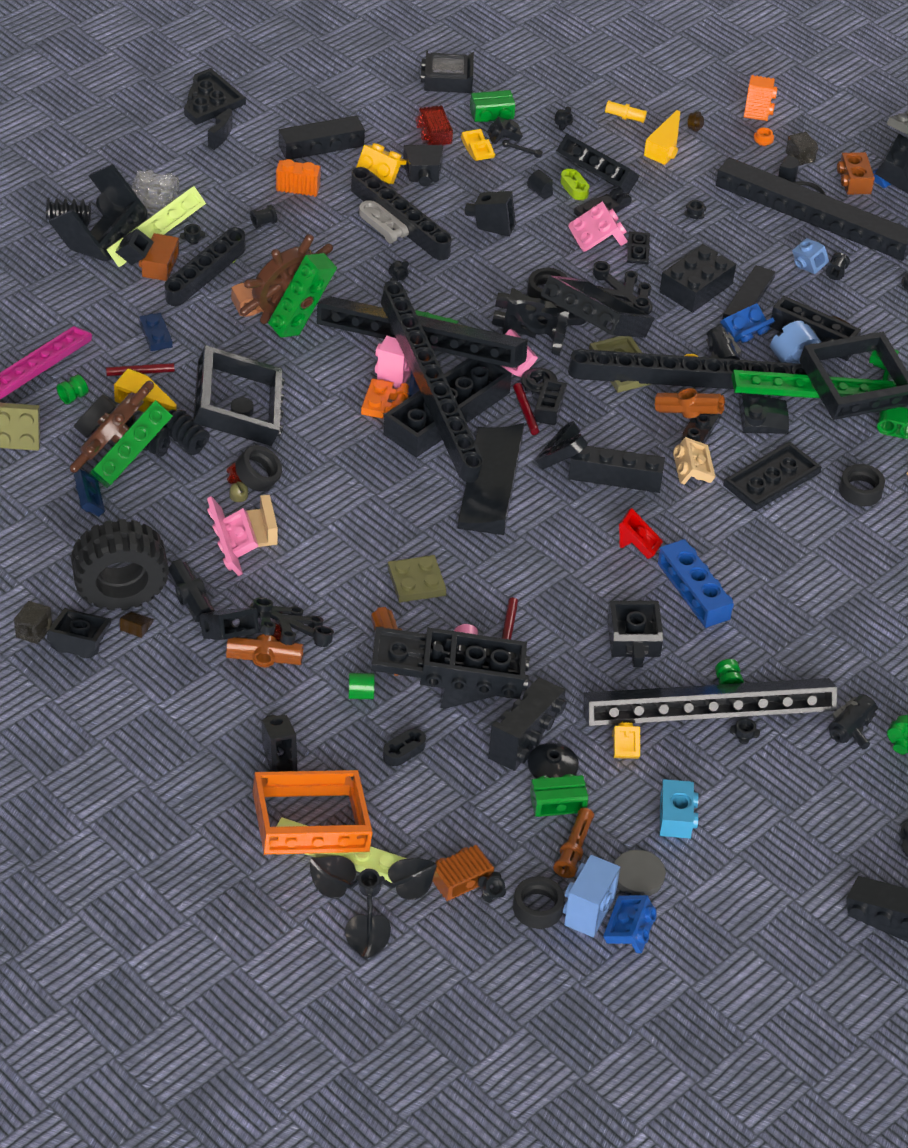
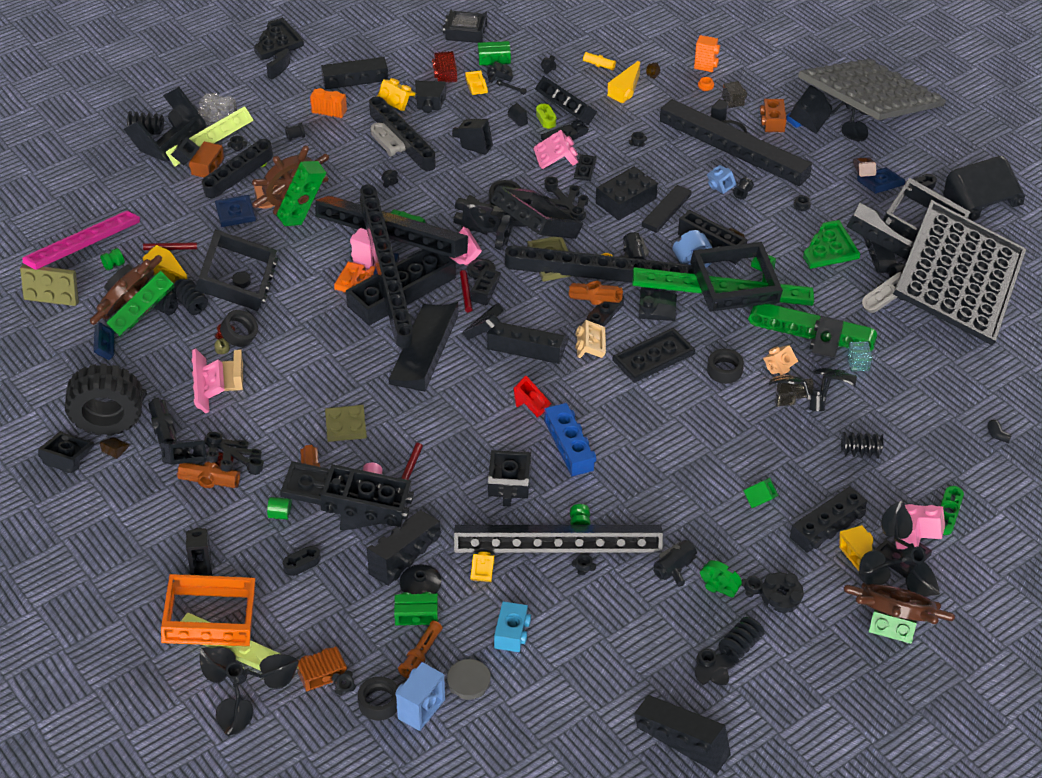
camera: 10 degrees right, 0 degrees up
(33, 622) = (30, 441): clear smoke brick -> none
(155, 331) = (189, 217): dark blue plate -> none
(212, 320) = (235, 210): none -> dark blue plate
(631, 921) = (451, 720): blue bracket -> none
(747, 323) = (658, 230): blue bracket -> none

